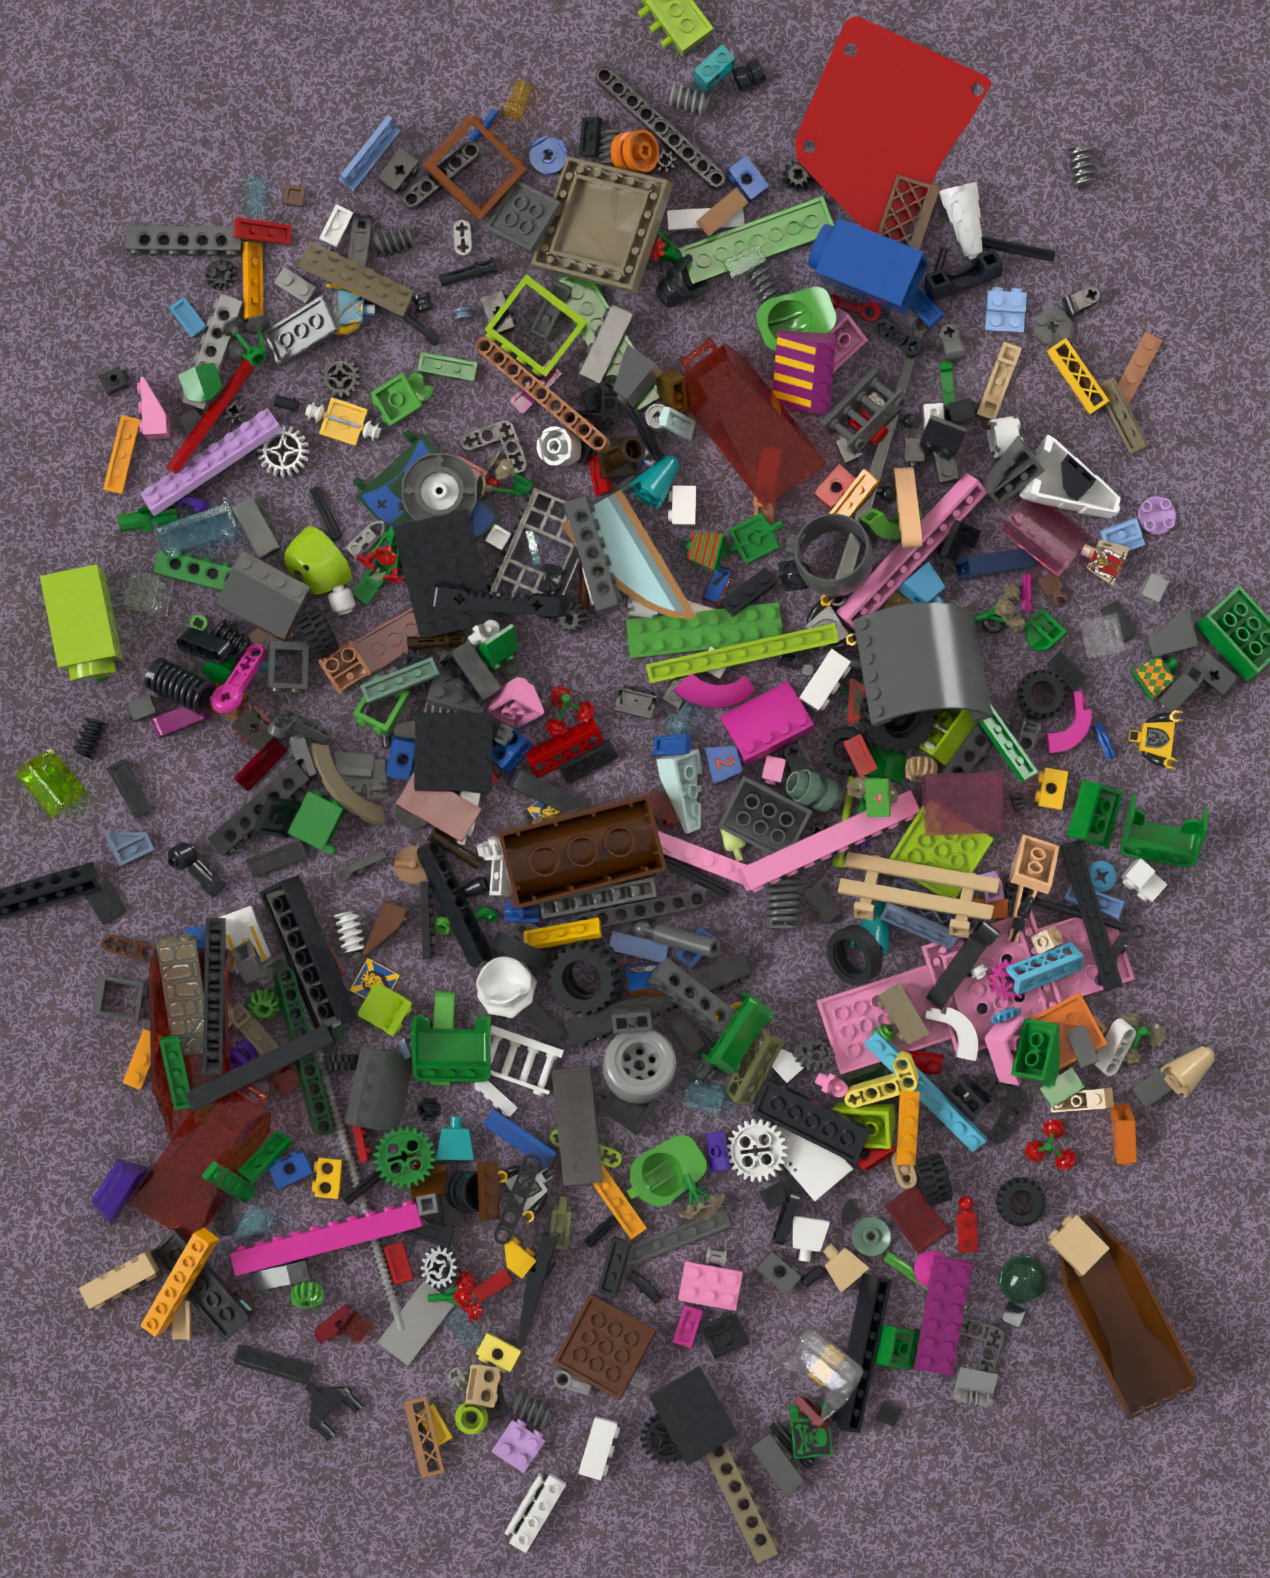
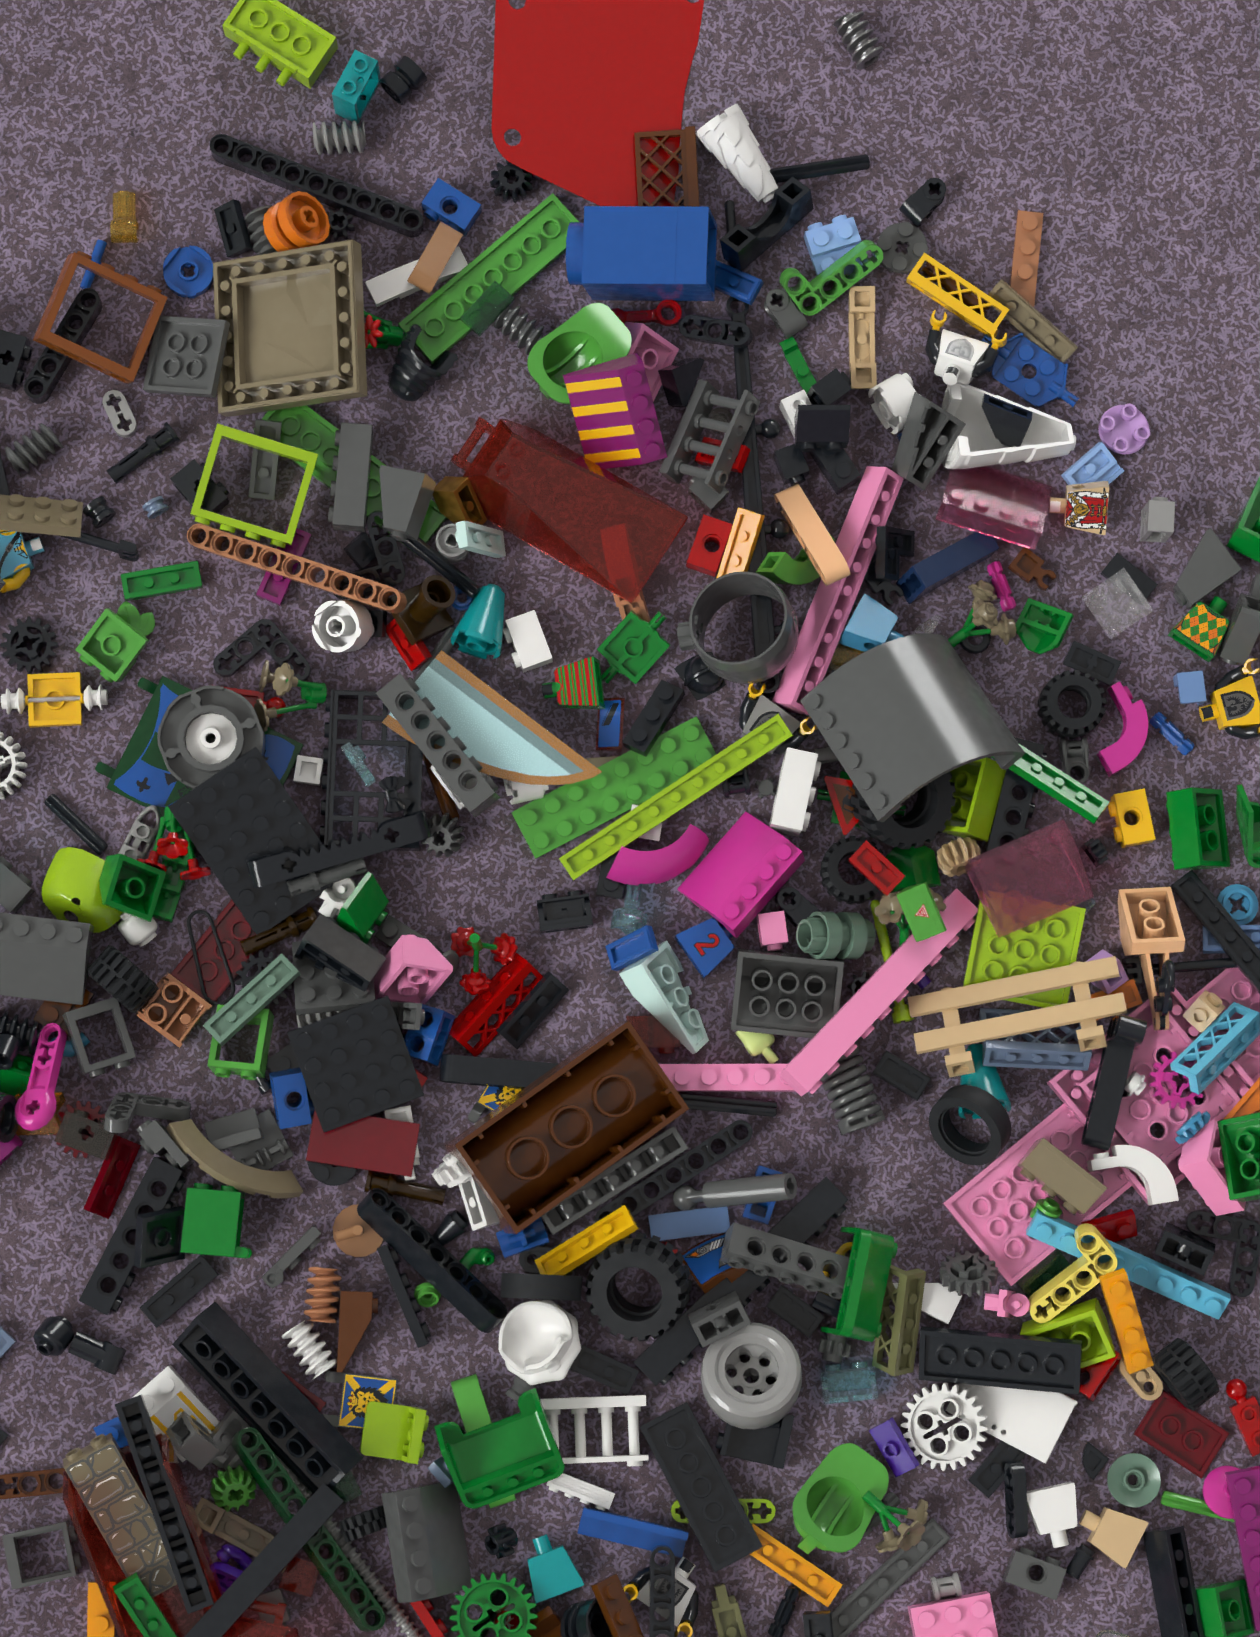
camera: 30 degrees left, 5 degrees down
(347, 571) = (130, 886): none -> green slope
(372, 640) = (197, 961): none -> black piece
(372, 898) = (322, 1295): none -> nougat piece
(481, 616) = (323, 877): none -> dark grey pin
(859, 362) = (679, 380): none -> black slope
(996, 328) = (835, 273): none -> bright green beam
(1062, 421) = (959, 356): none -> torso
(1106, 433) = (1050, 373): none -> blue plate
(1129, 714) = (1190, 687): none -> medium blue panel

